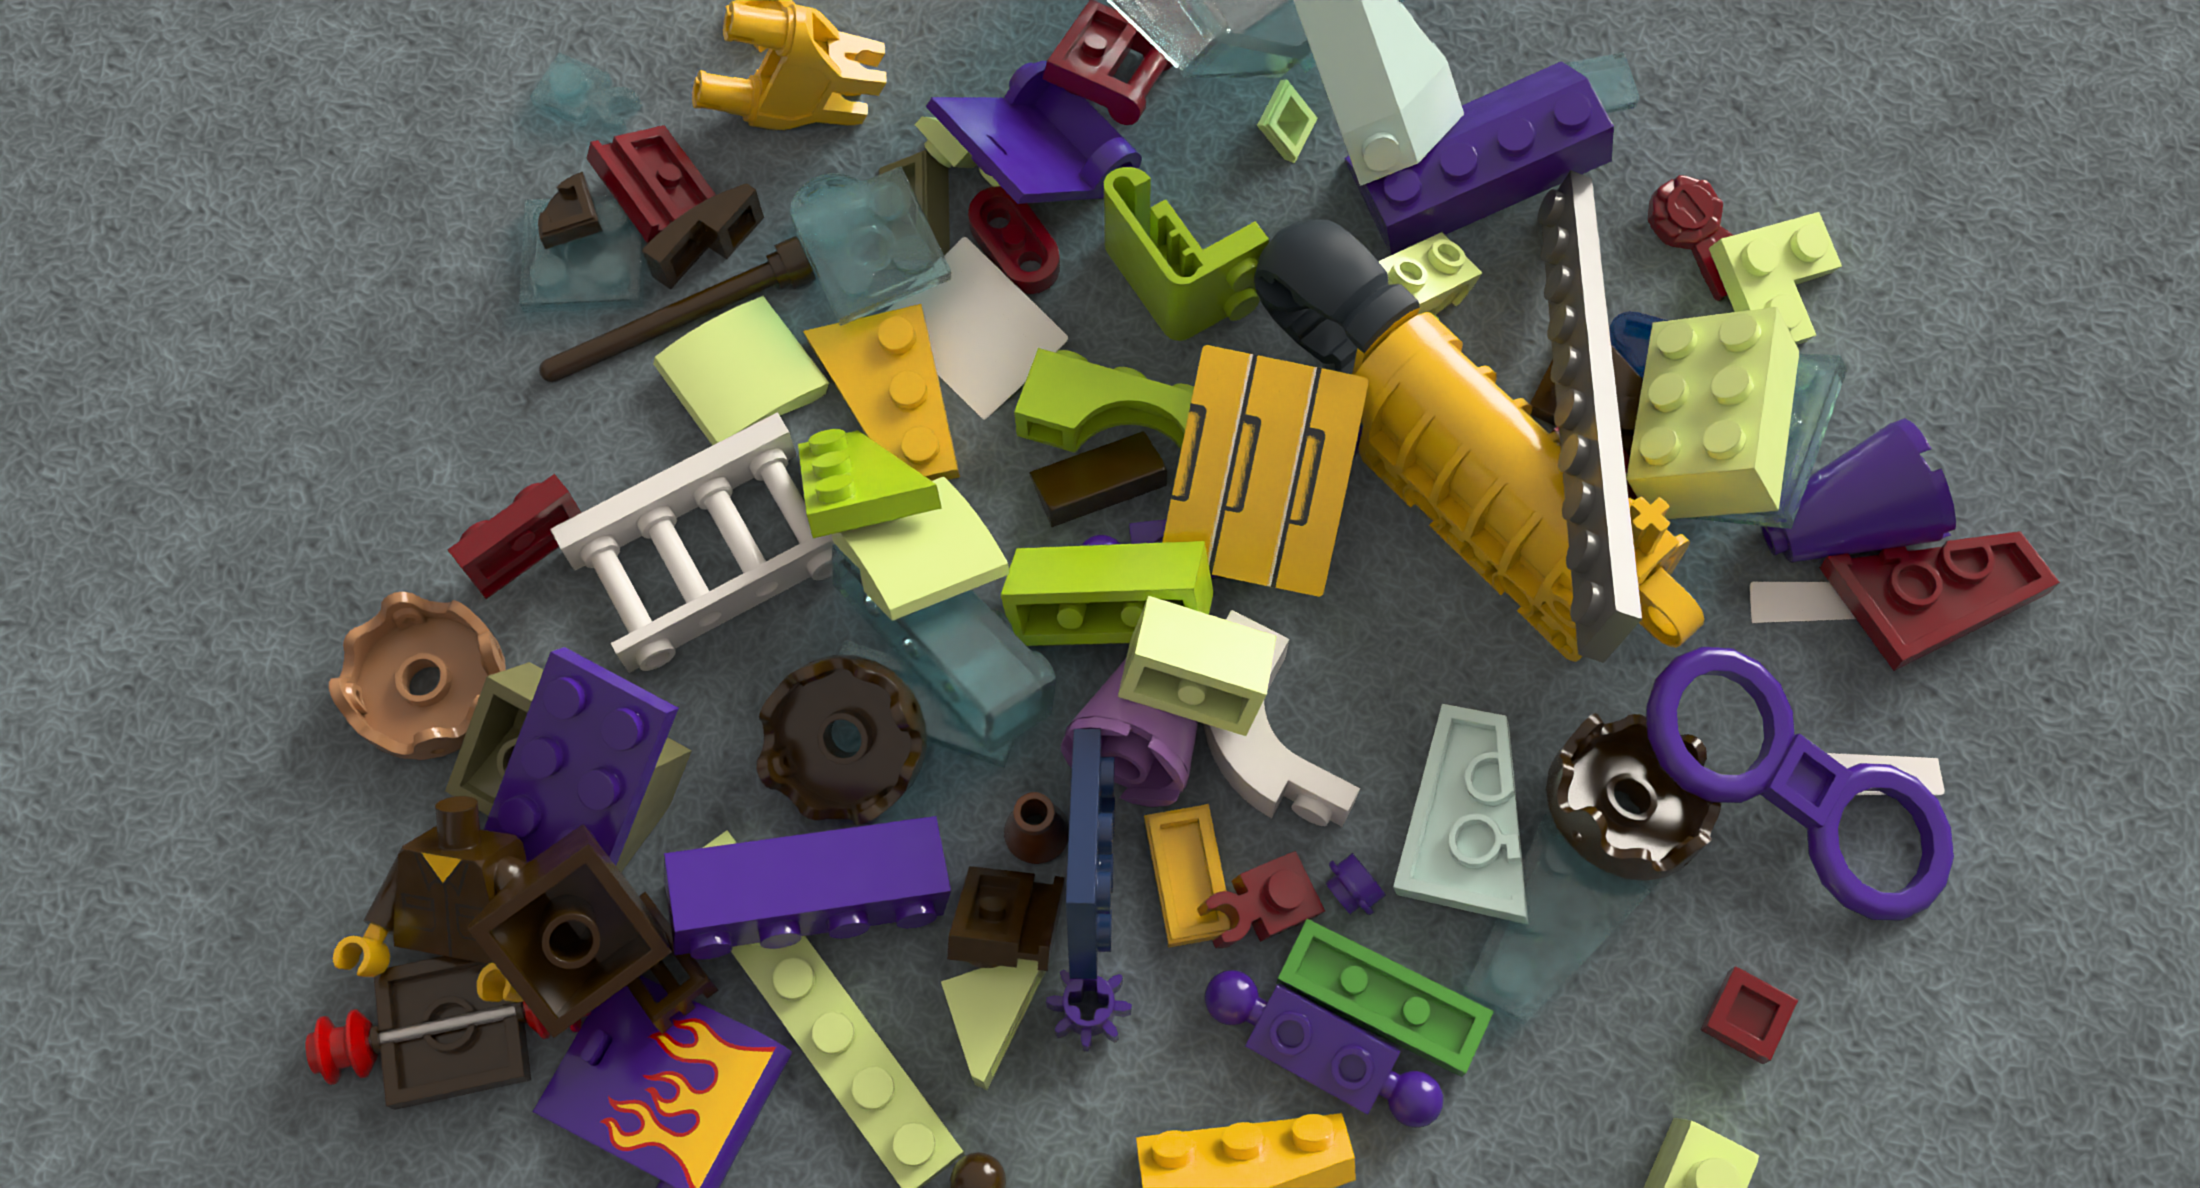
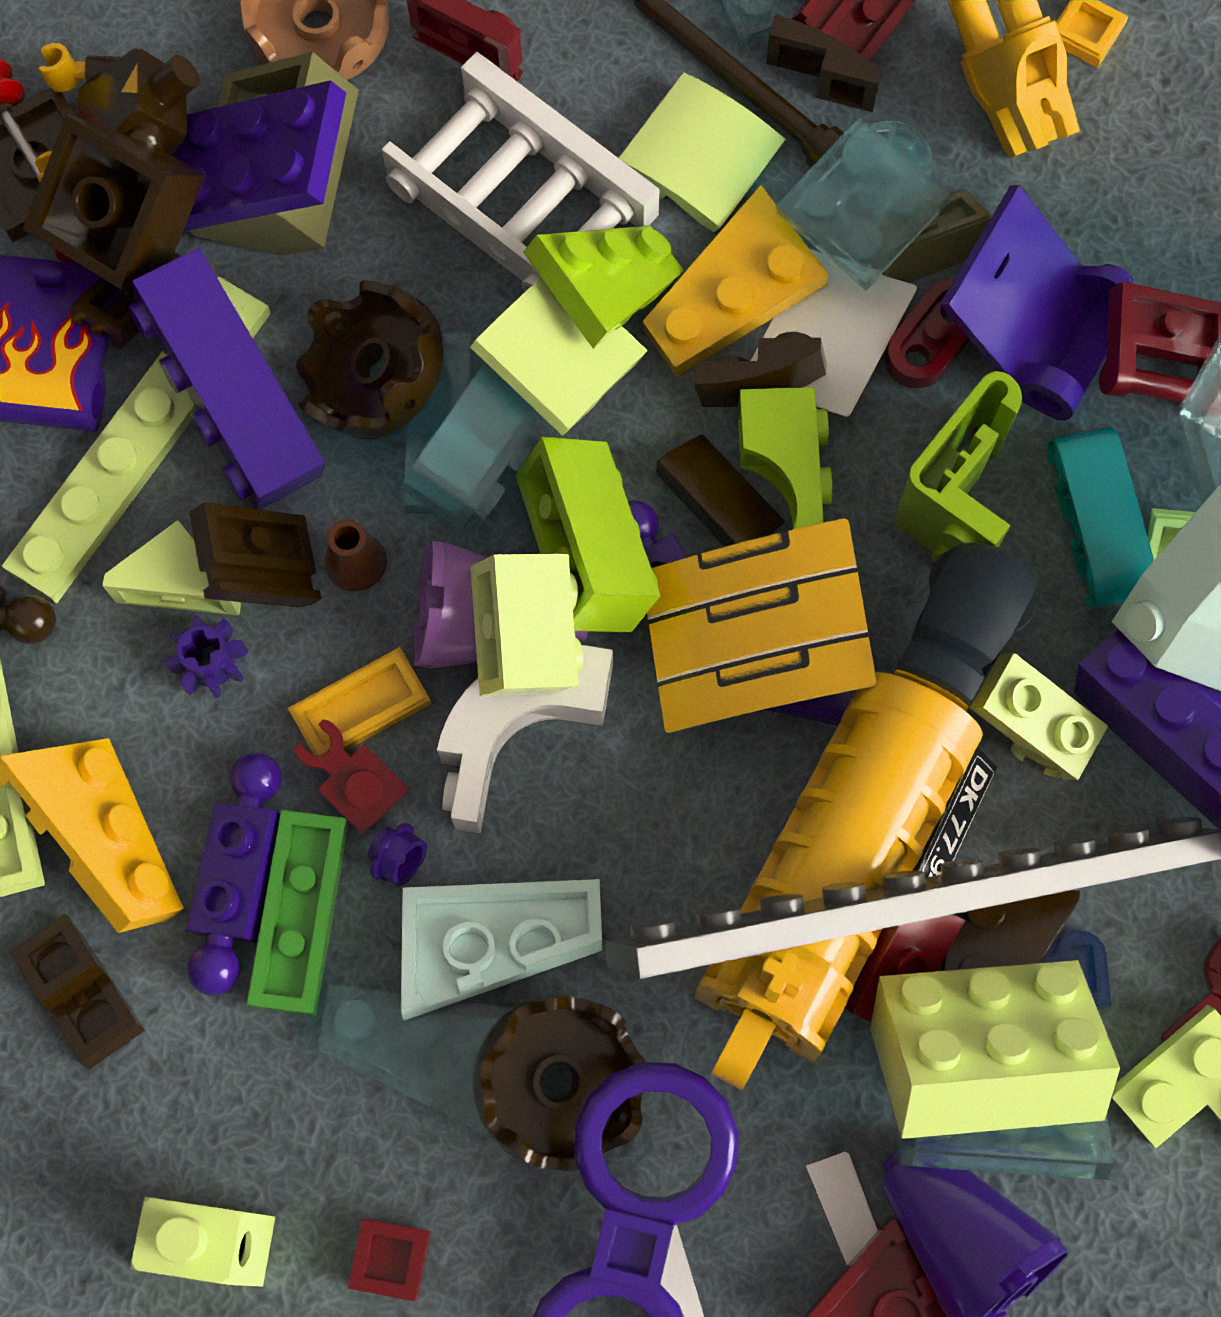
camera: 70 degrees right, 5 degrees up
(998, 377) = (782, 362): none -> dark brown slope
(1090, 854) = (321, 594): dark blue plate -> none
(1244, 168) = (1103, 513): none -> teal beam

